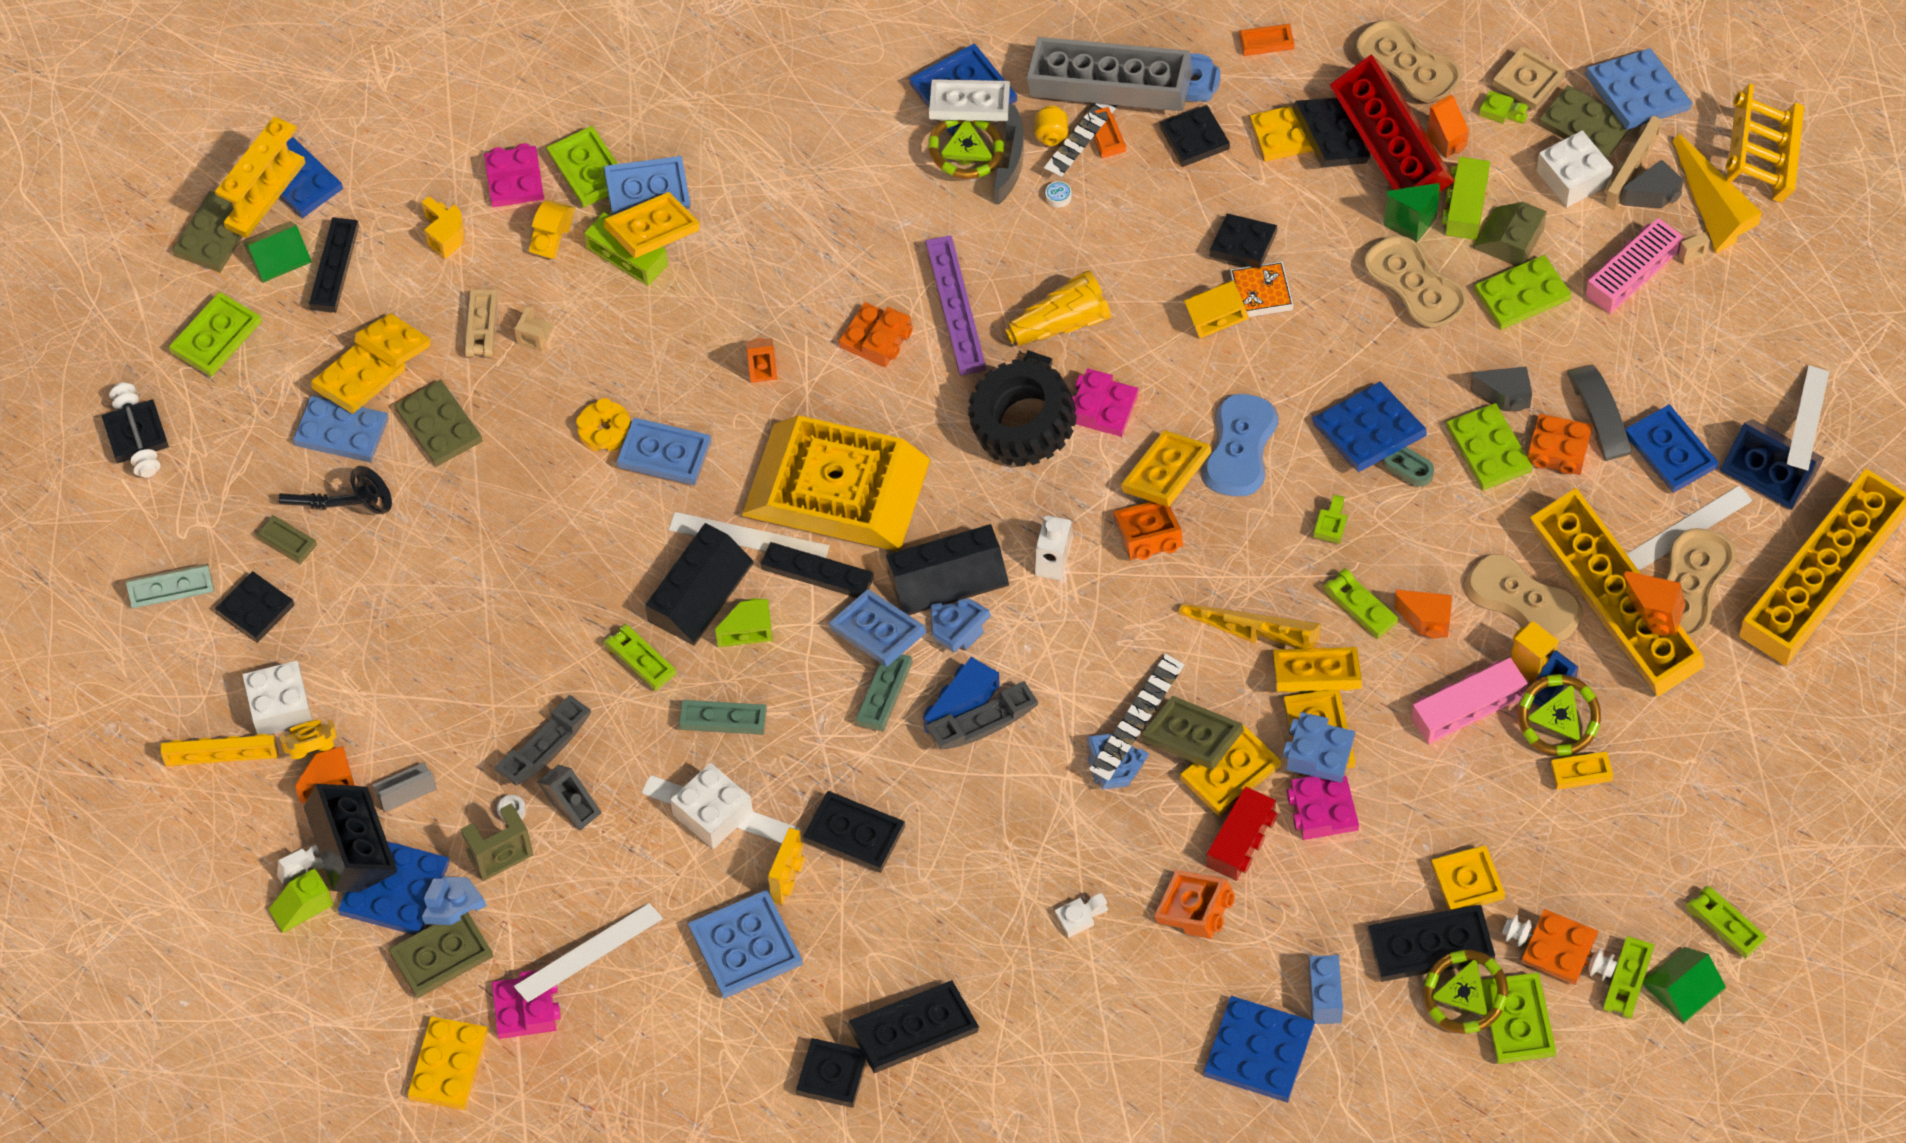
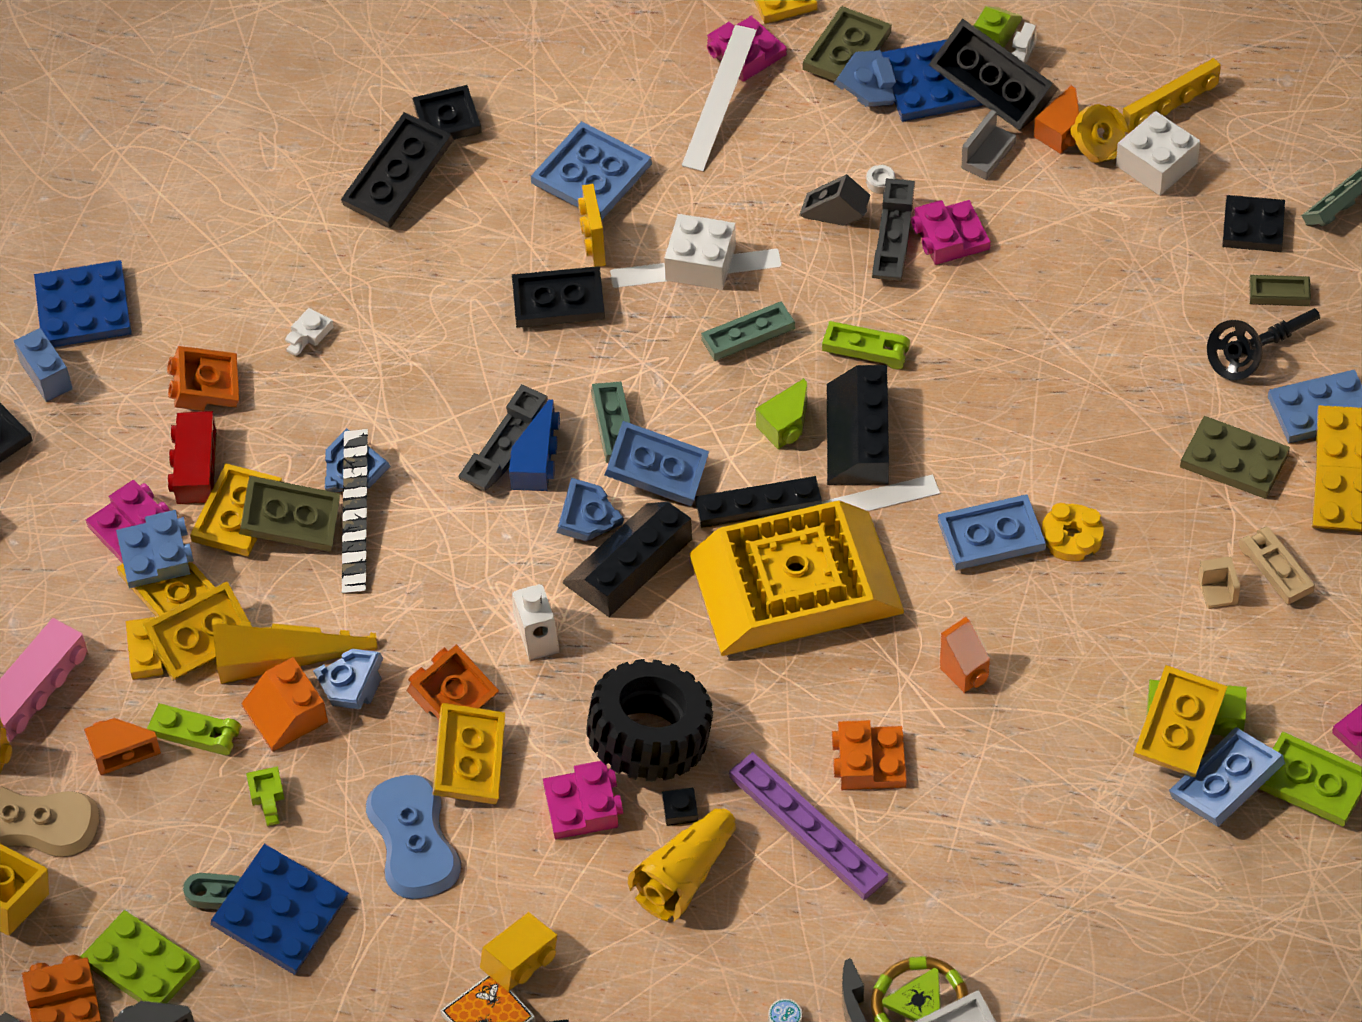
camera: 150 degrees right, 5 degrees down
(495, 725) = (949, 231): none -> dark pink plate
(501, 849) = (856, 124): olive panel -> none
(549, 224) = (1291, 689): yellow brick -> none
(1221, 578) = (351, 679): none -> medium blue plate
(1282, 580) = (284, 705): none -> orange slope
(1363, 701) = (142, 654): none -> yellow plate

